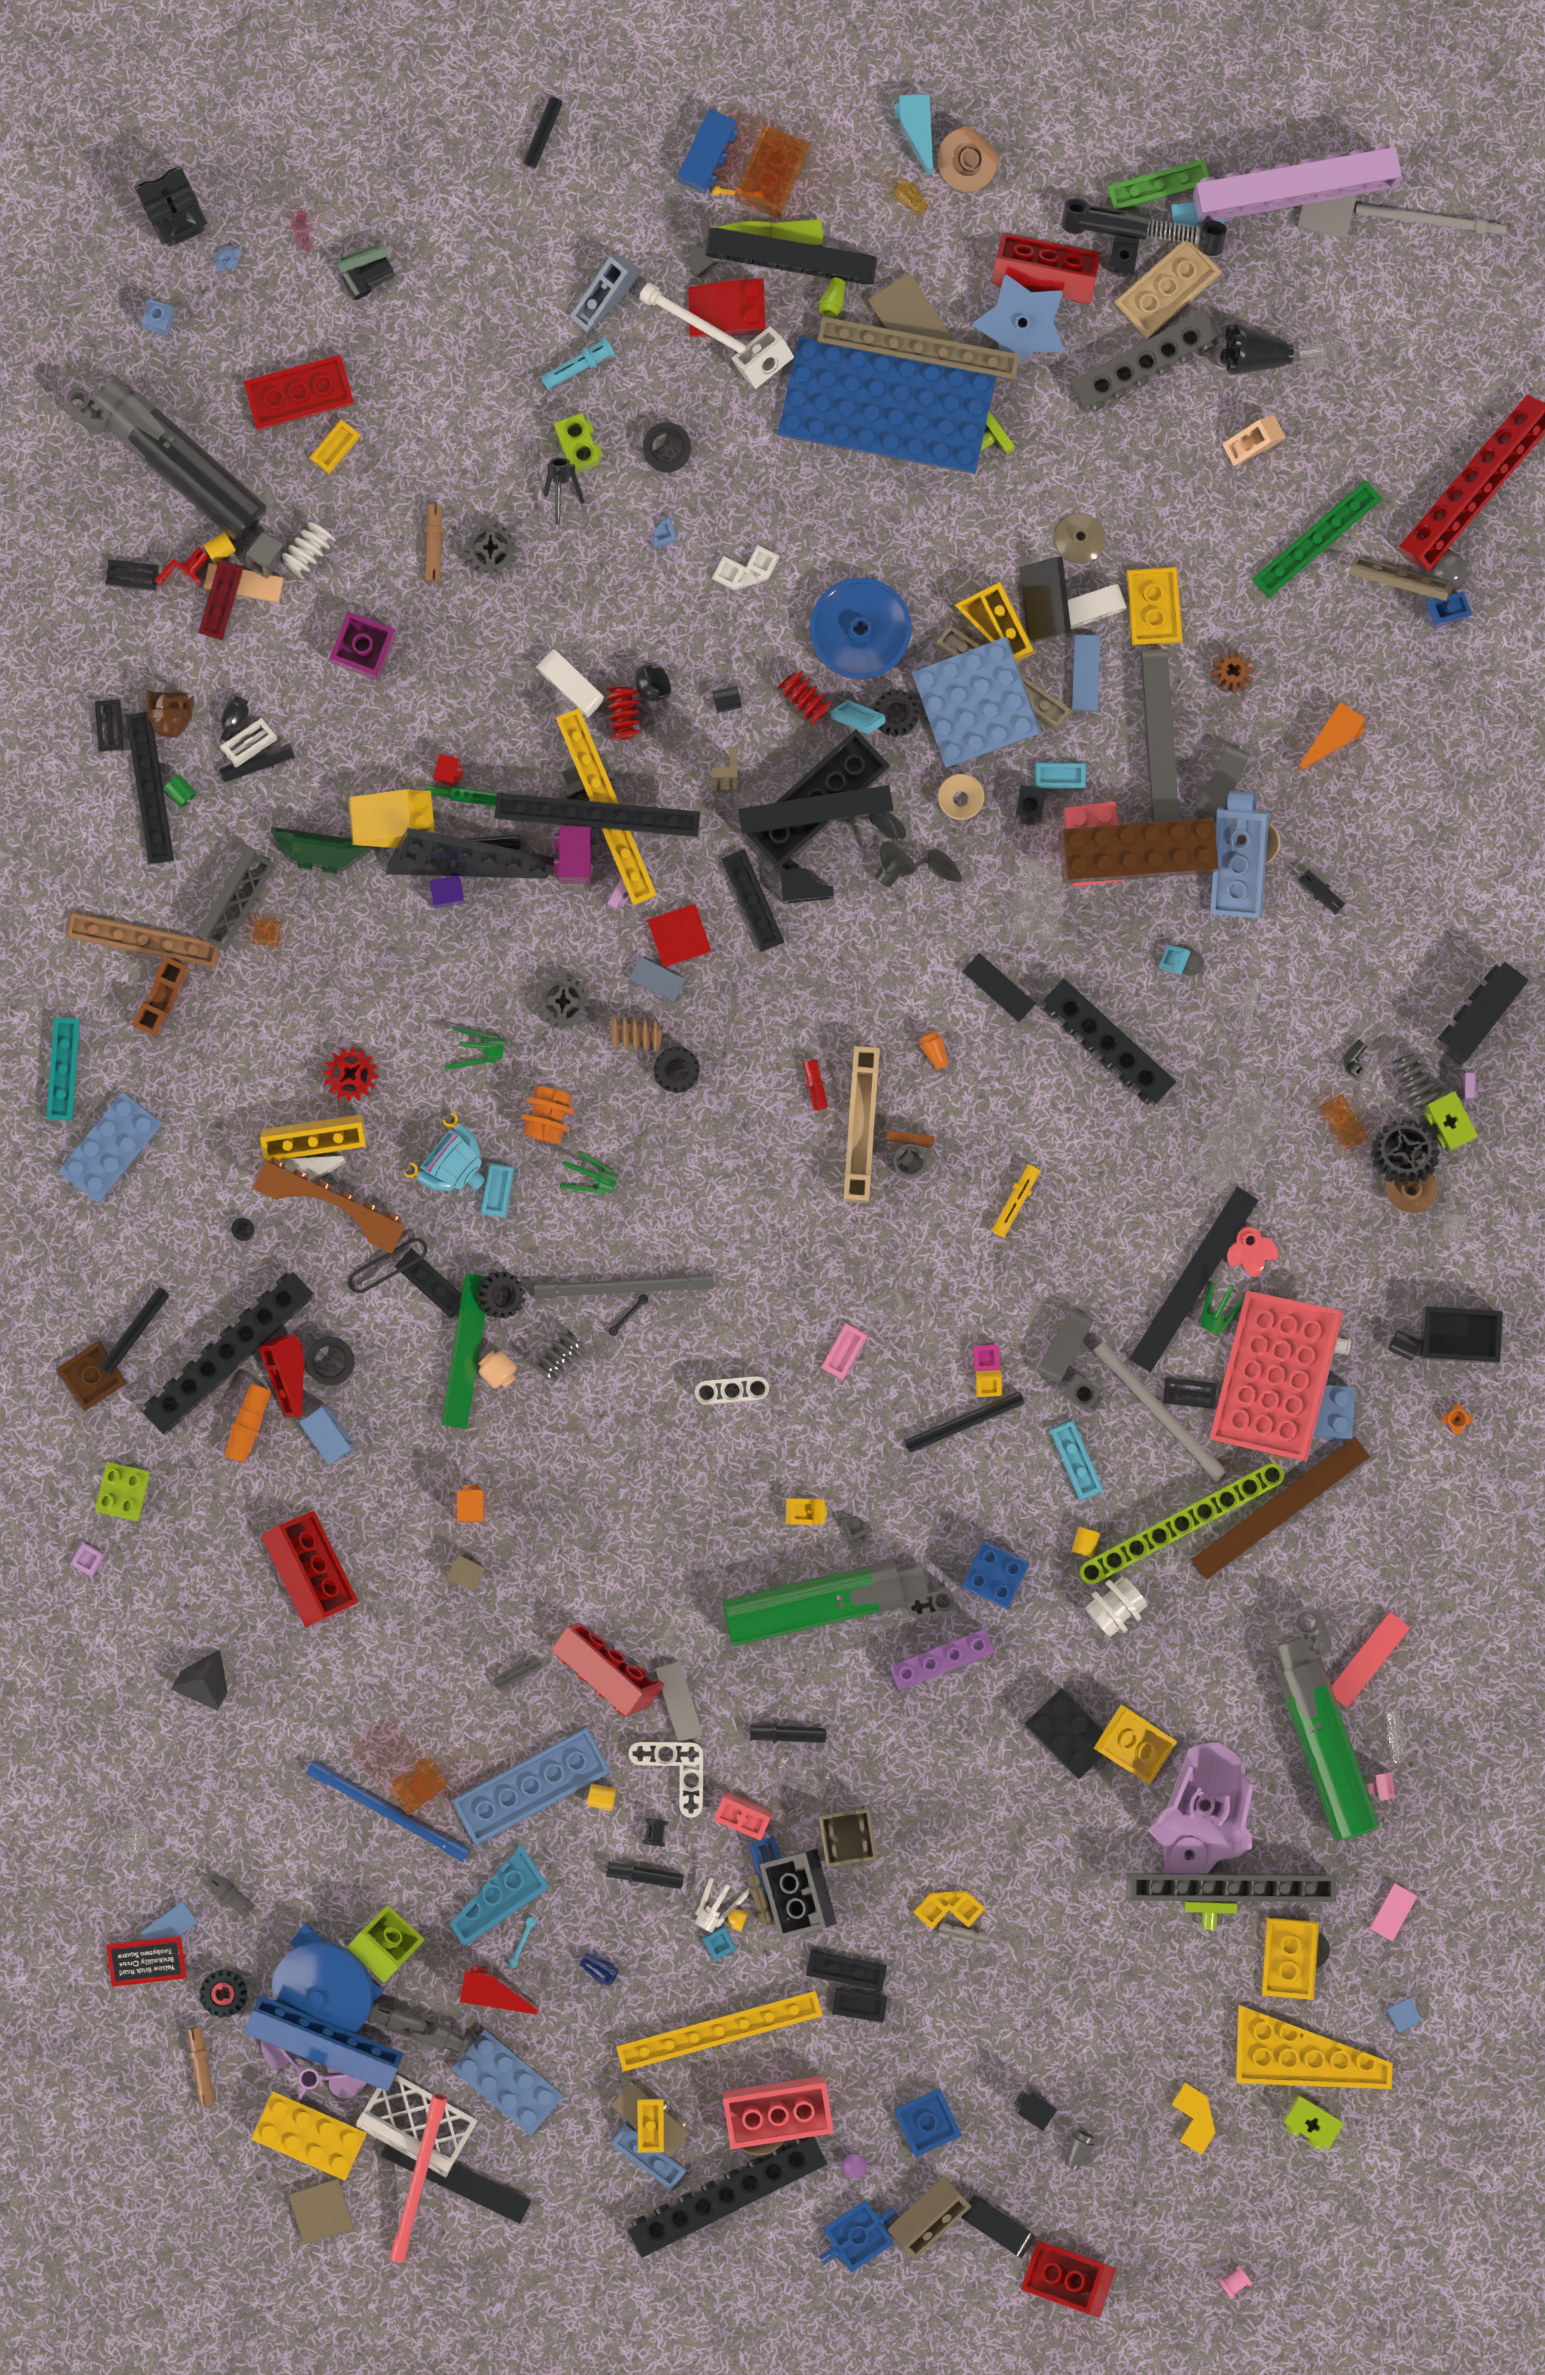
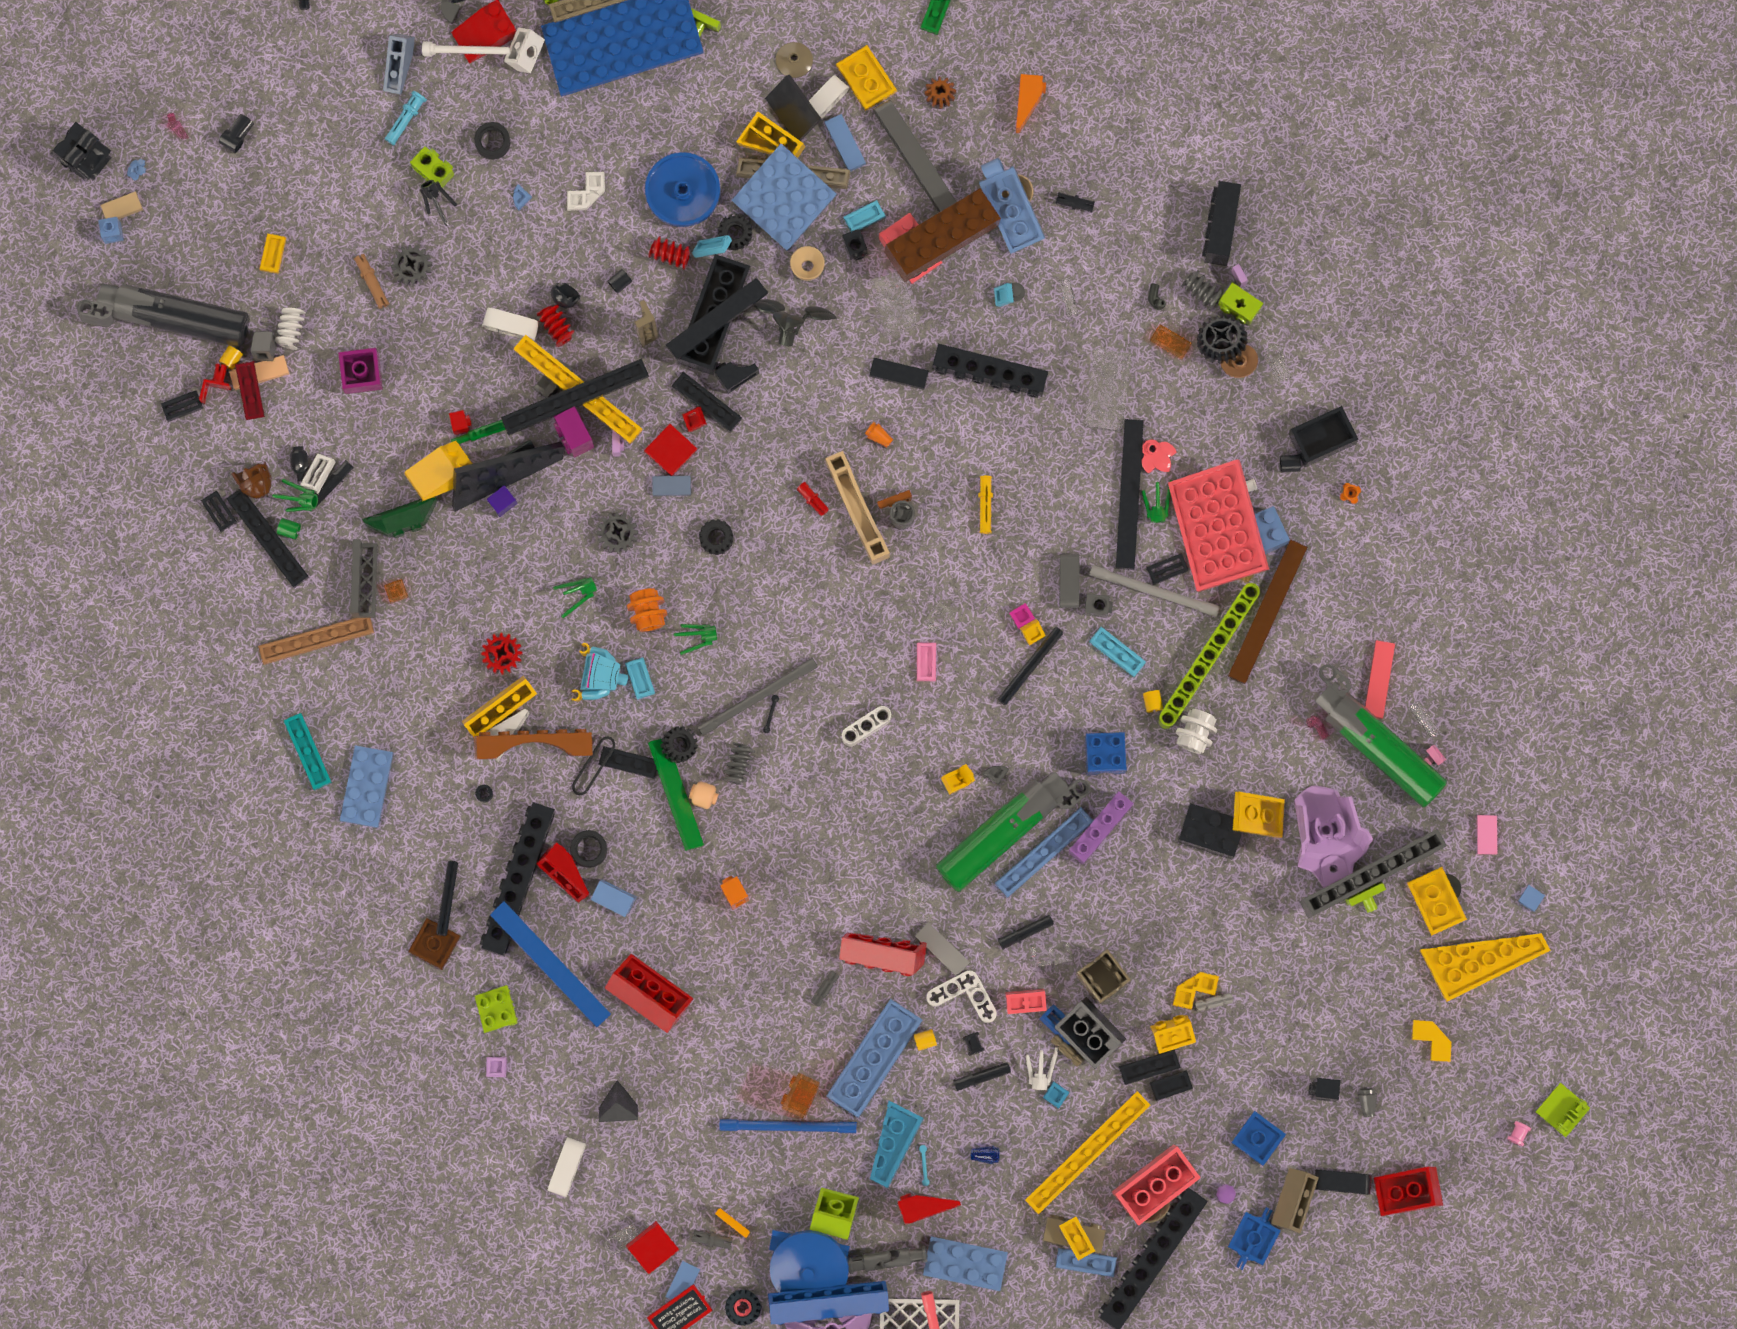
camera: 25 degrees left, 5 degrees down
(106, 1720) = (566, 1167): none -> white beam
(155, 1868) = (652, 1247): none -> red tile
(159, 1004) = (348, 669): dark orange arch -> none
(186, 295) = (122, 206): none -> tan tile
(212, 1474) = (550, 964): none -> blue tile
(218, 769) = (307, 500): none -> green plant
(247, 1424) = (555, 919): orange piece -> none
(263, 1889) = (732, 1222): none -> light orange tile
(298, 392) = (230, 230): red plate -> none
(361, 257) = (225, 122): sand green tile -> none
(466, 1573) = (754, 939): dark tan panel -> none
(636, 1033) = (676, 527): medium nougat piece -> none
(726, 914) = (694, 419): none -> red tile
(737, 1919) = (1058, 1072): yellow hinge -> none
(860, 1651) = (1044, 852): none -> medium blue tile
(894, 1946) = (1173, 1033): none -> yellow bracket
(1223, 780) = (972, 164): dark grey beam -> none
(1266, 1679) = (1315, 722): none -> clear pink arm
(1302, 2282) = (1563, 1109): none -> lime hinge
(1327, 2124) = (1501, 995): lime brick -> none

